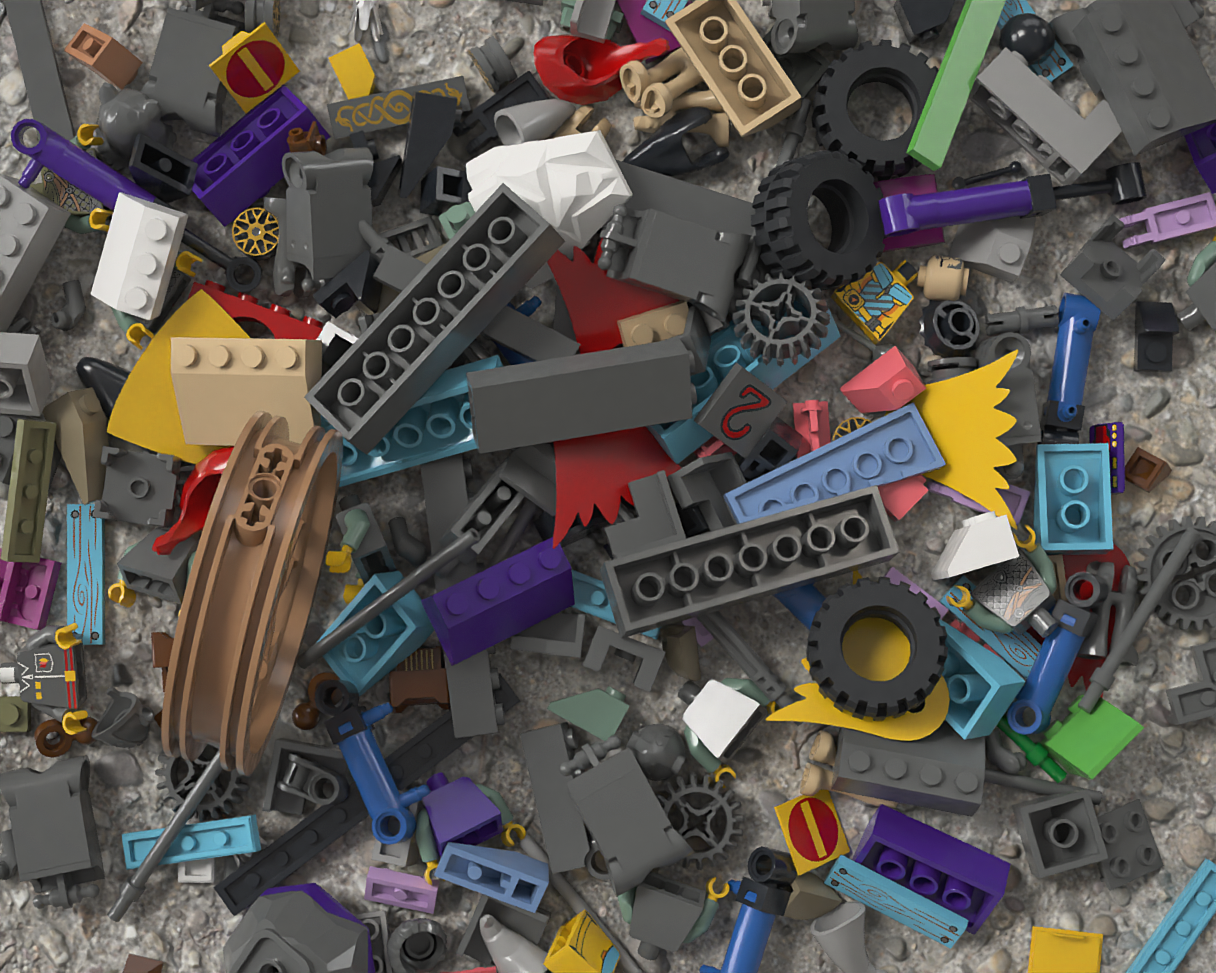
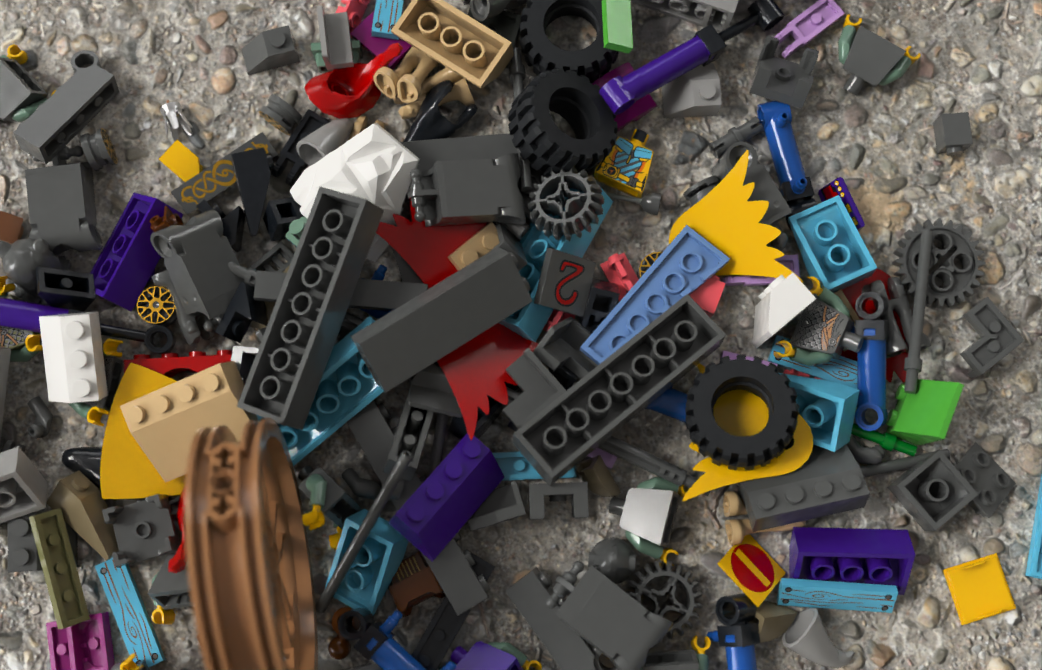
camera: 20 degrees left, 5 degrees down
(253, 66) = (106, 187): piece -> none
(593, 711) = (552, 550): sand green slope -> none
(884, 384) = (659, 222): coral slope -> none
(943, 278) = (668, 131): tan head -> none
(949, 328) = (687, 163): black piece -> none
(959, 183) = (683, 35): black hinge -> none
(1146, 470) = (872, 204): reddish brown slope -> none
(1154, 336) = (833, 110): black slope -> none

